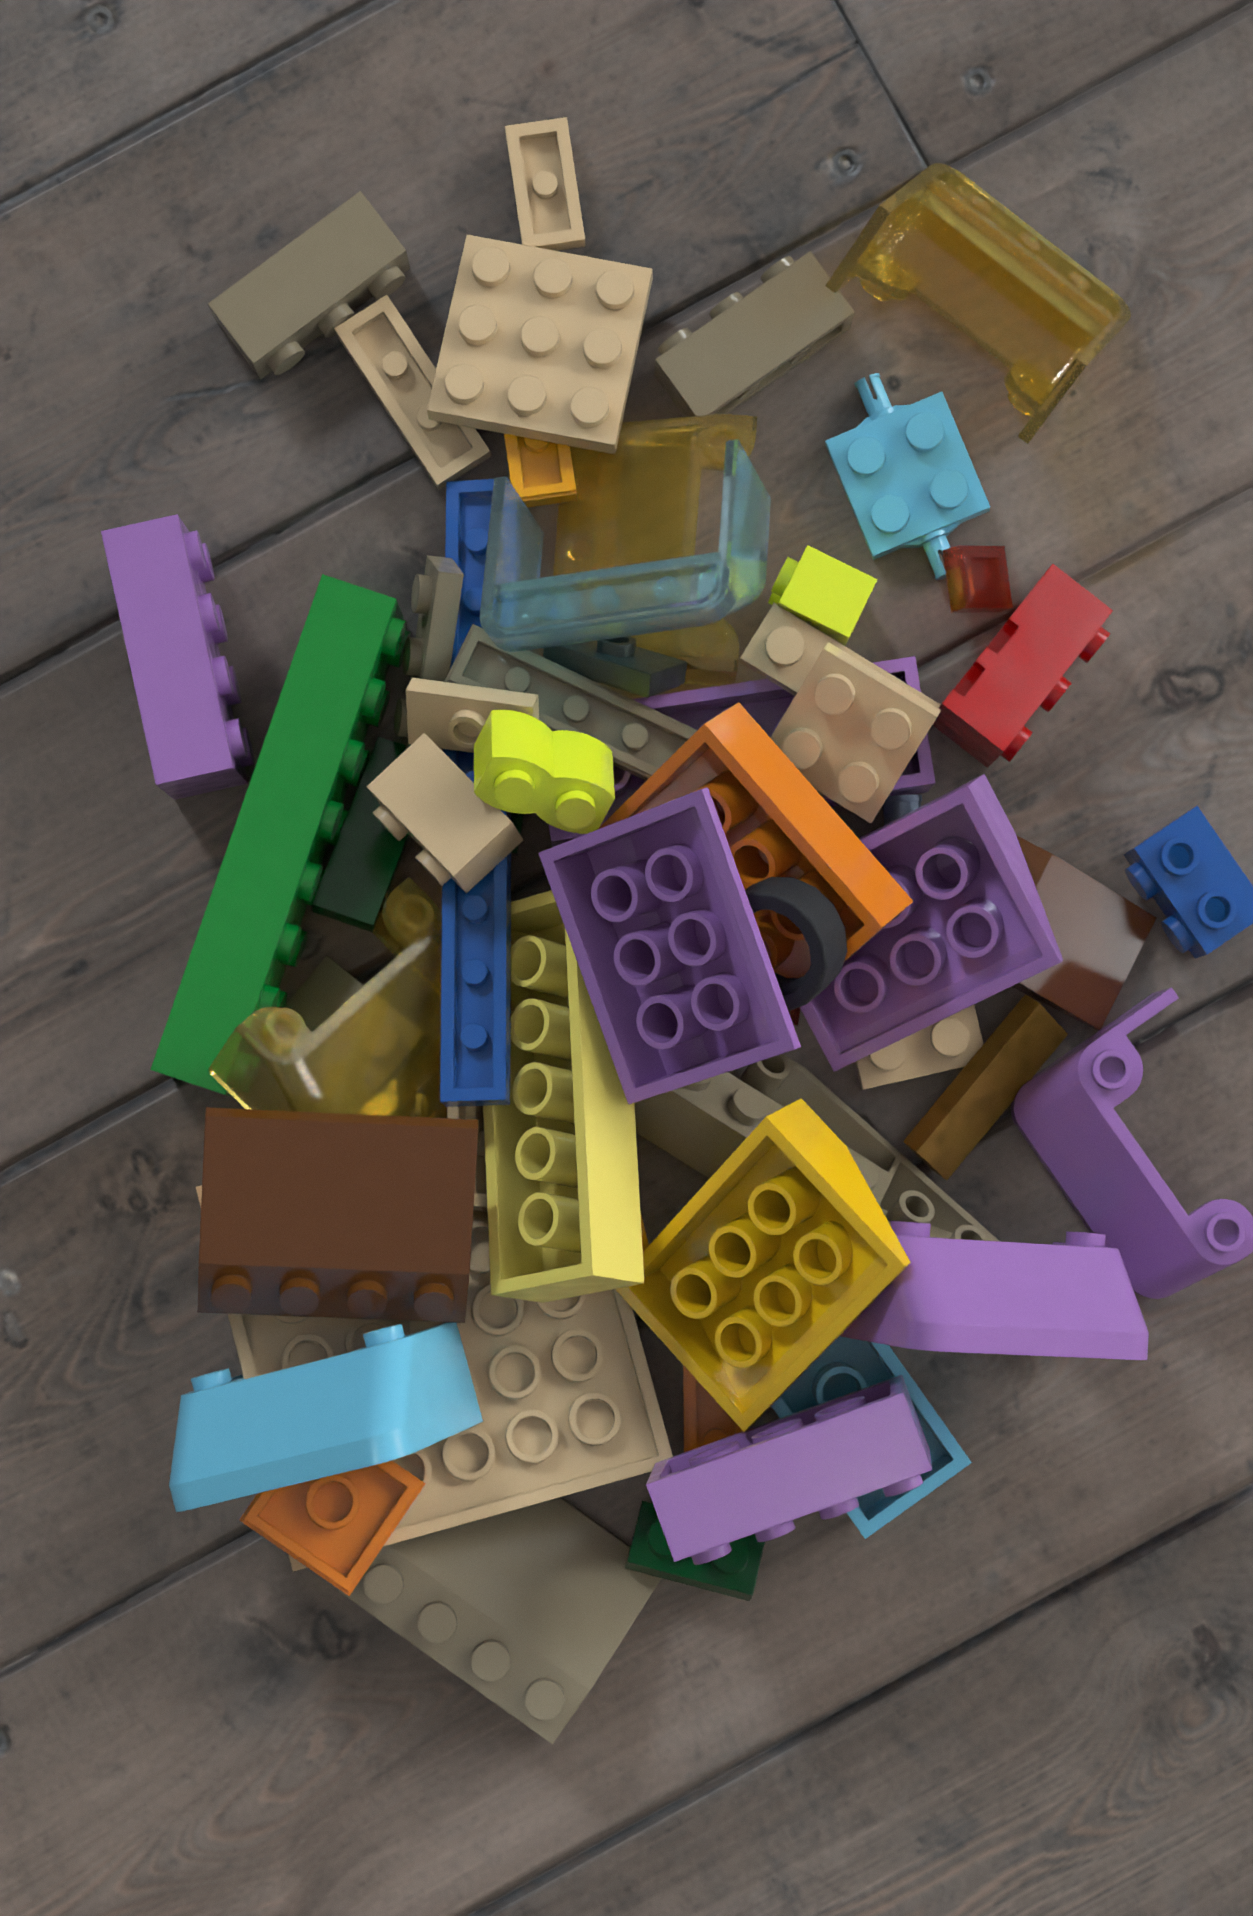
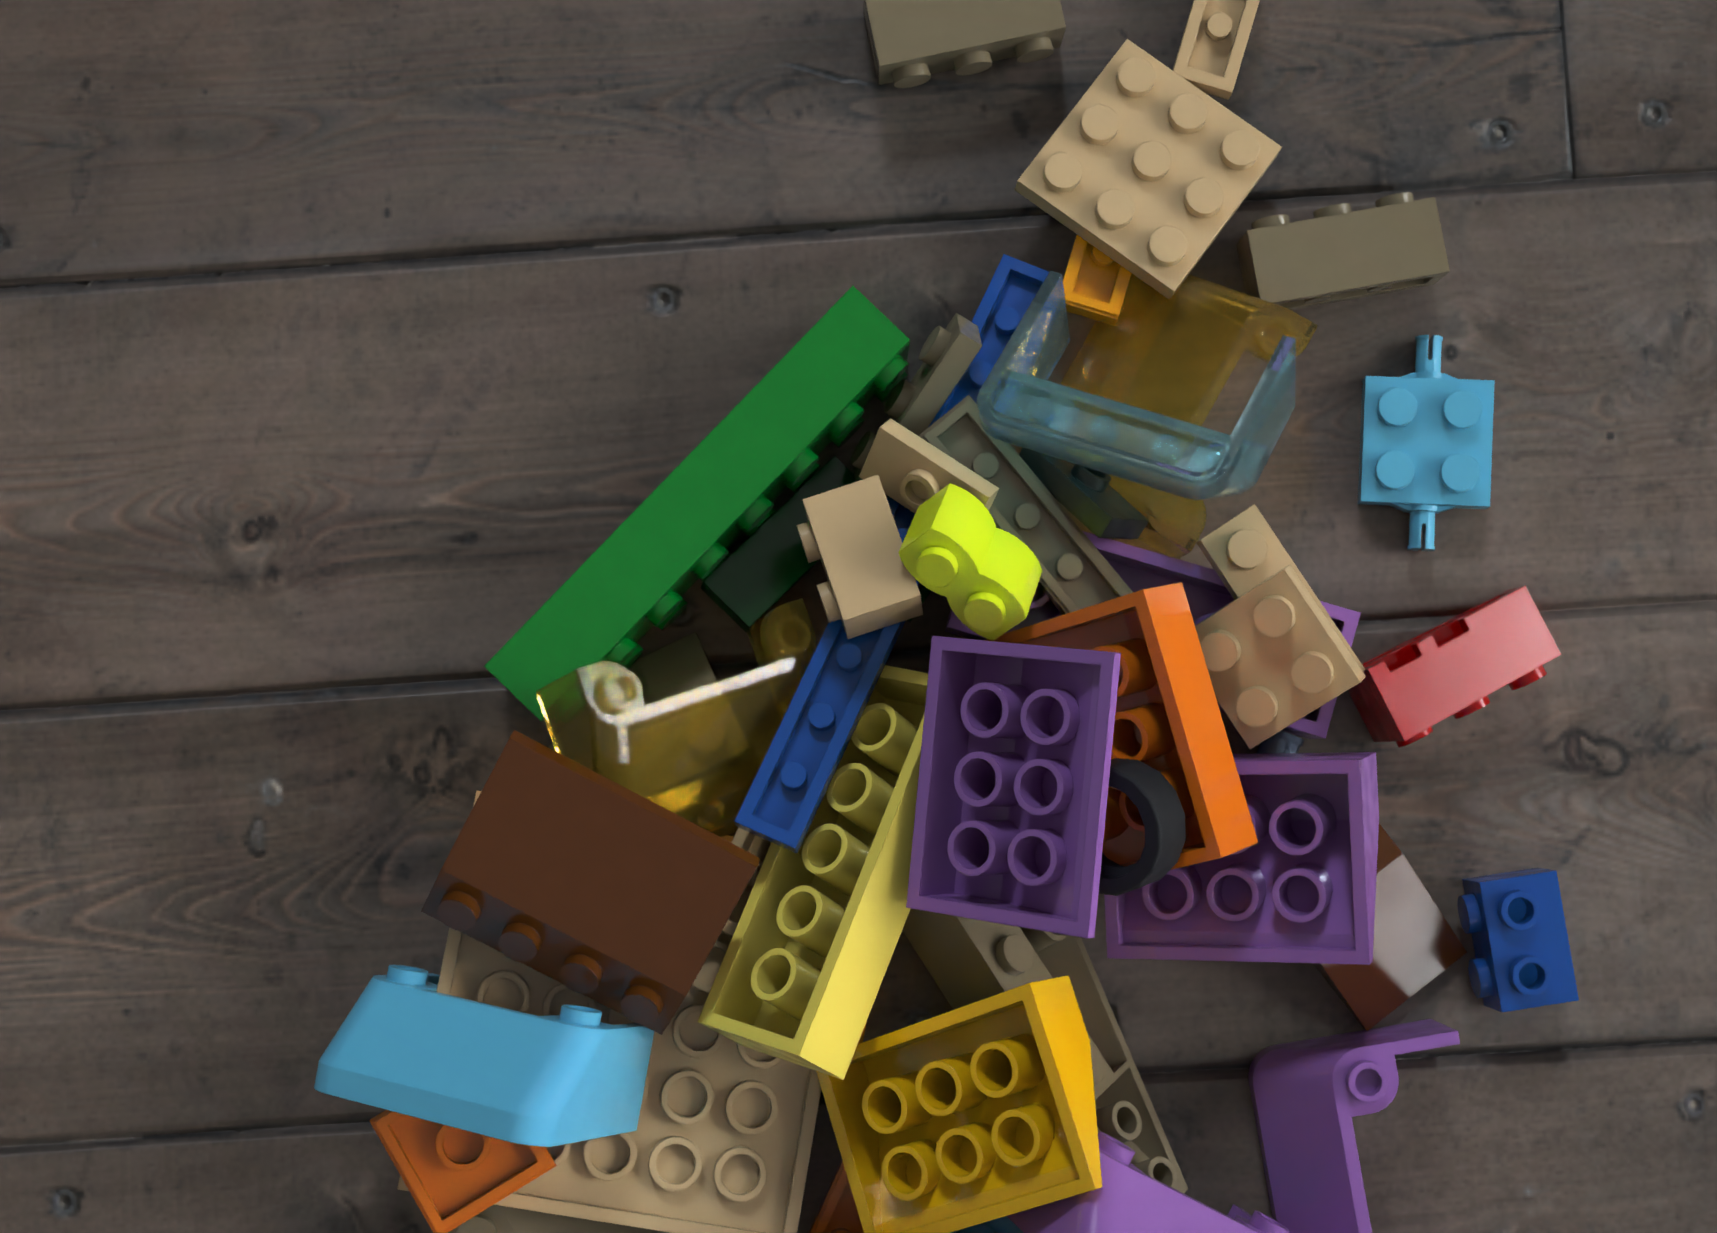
camera: 30 degrees right, 0 degrees up
(176, 658) = (685, 299): medium lavender brick -> none
(403, 384) = (1006, 145): tan plate -> none
(823, 593) = (1304, 515): neon yellow brick -> none
(929, 1051) = (1214, 982): tan plate -> none
(977, 579) = (1447, 566): clear red tile -> none
(985, 1087) = (1238, 1035): pearl gold tile -> none
(991, 282) = (1585, 304): clear yellow windscreen -> none

